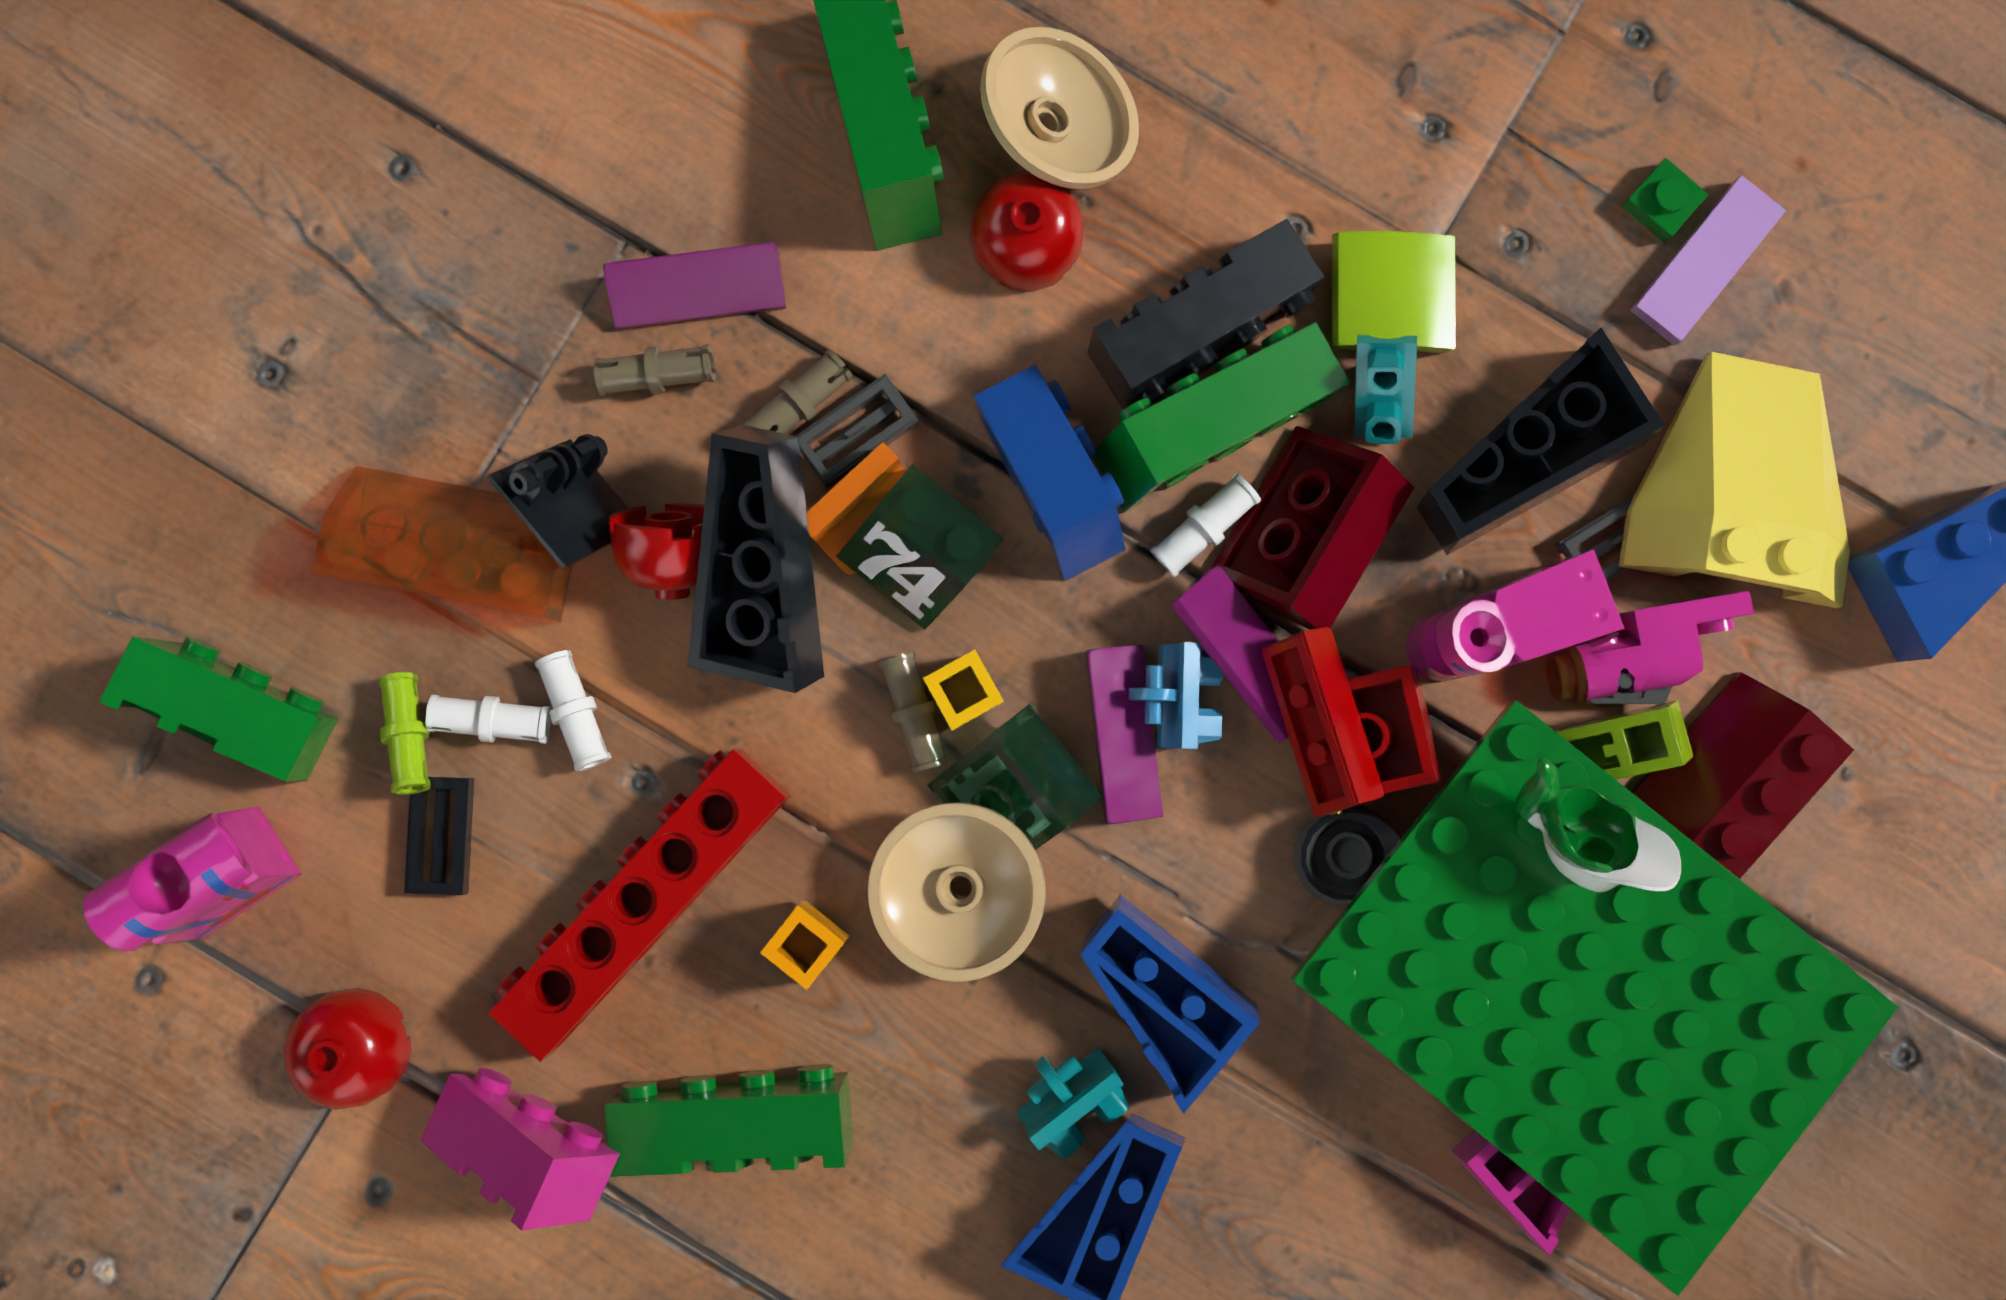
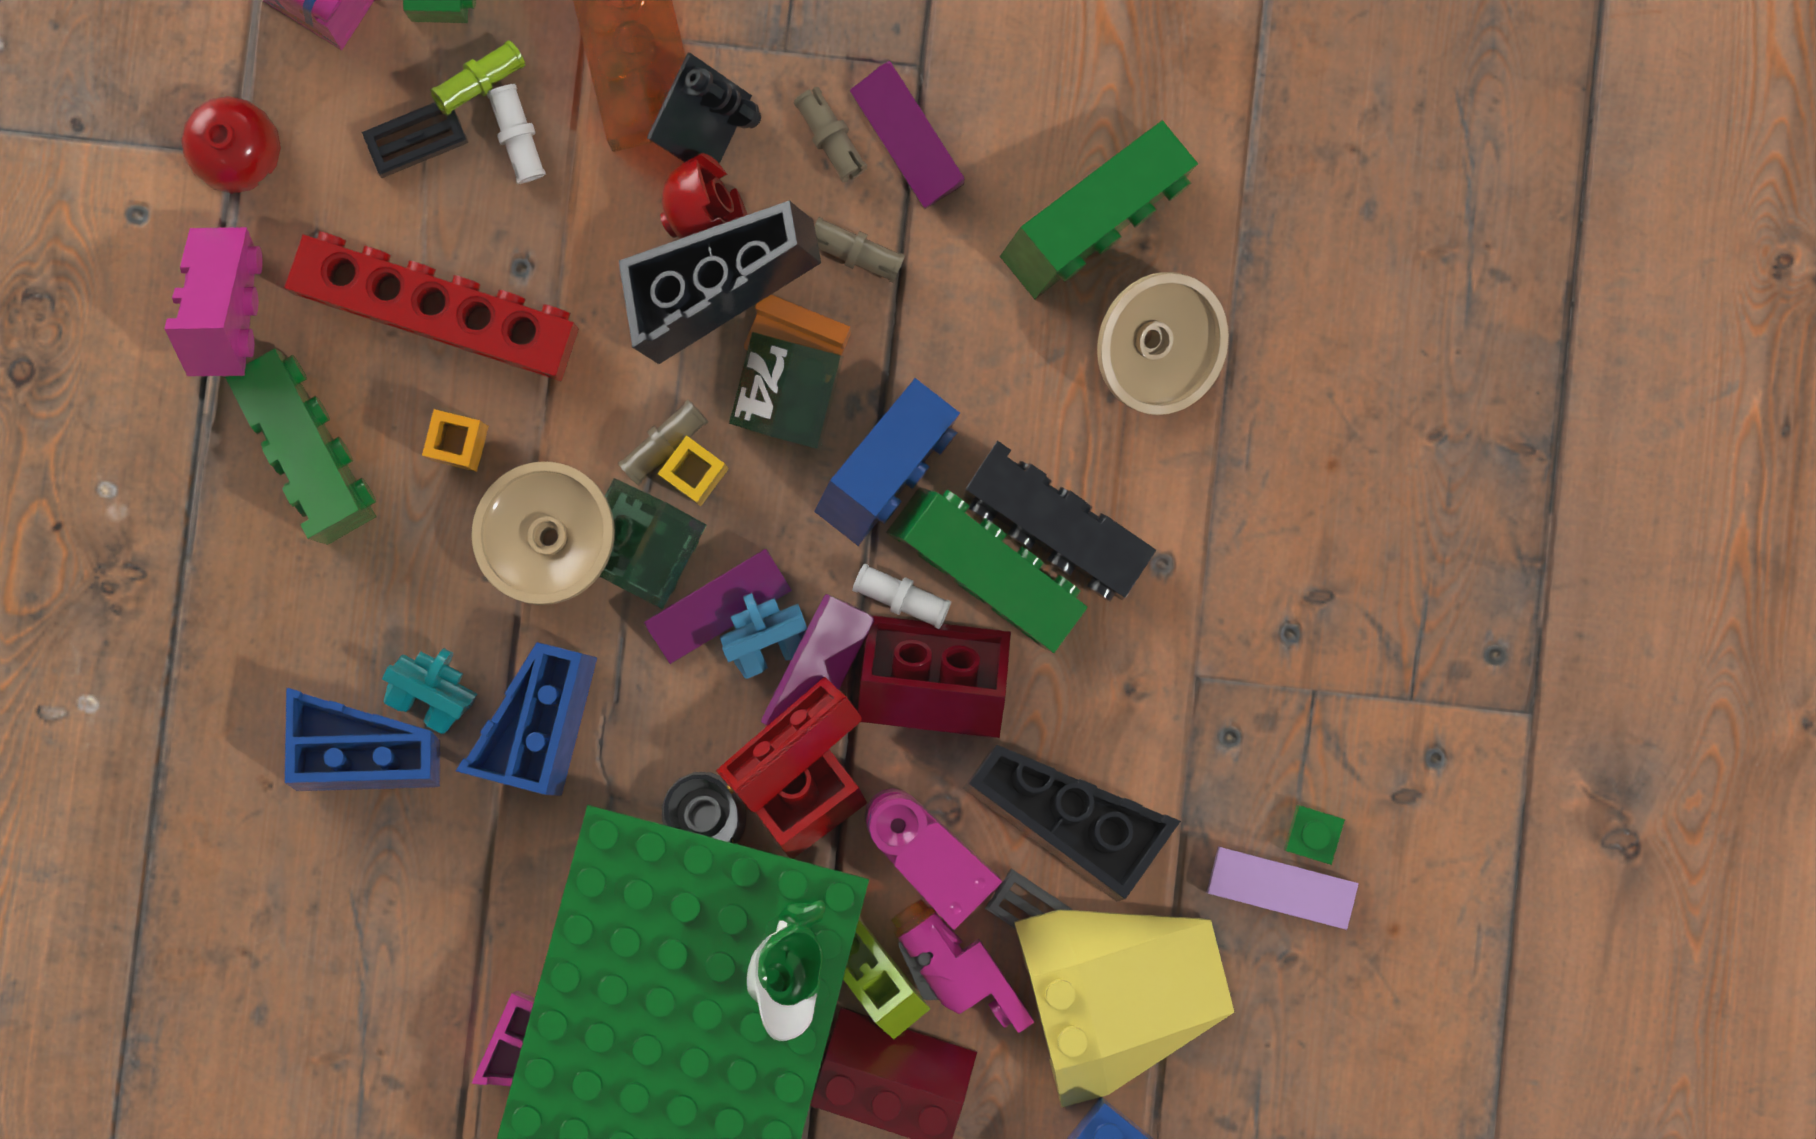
camera: 75 degrees right, 0 degrees up
(572, 710) = (550, 192): white pin -> none
(844, 411) = (888, 324): dark grey tile -> none
(1026, 232) = (1061, 362): red cylinder -> none
(1385, 388) = (1062, 683): teal hips -> none
(1393, 288) = (1145, 658): lime slope -> none

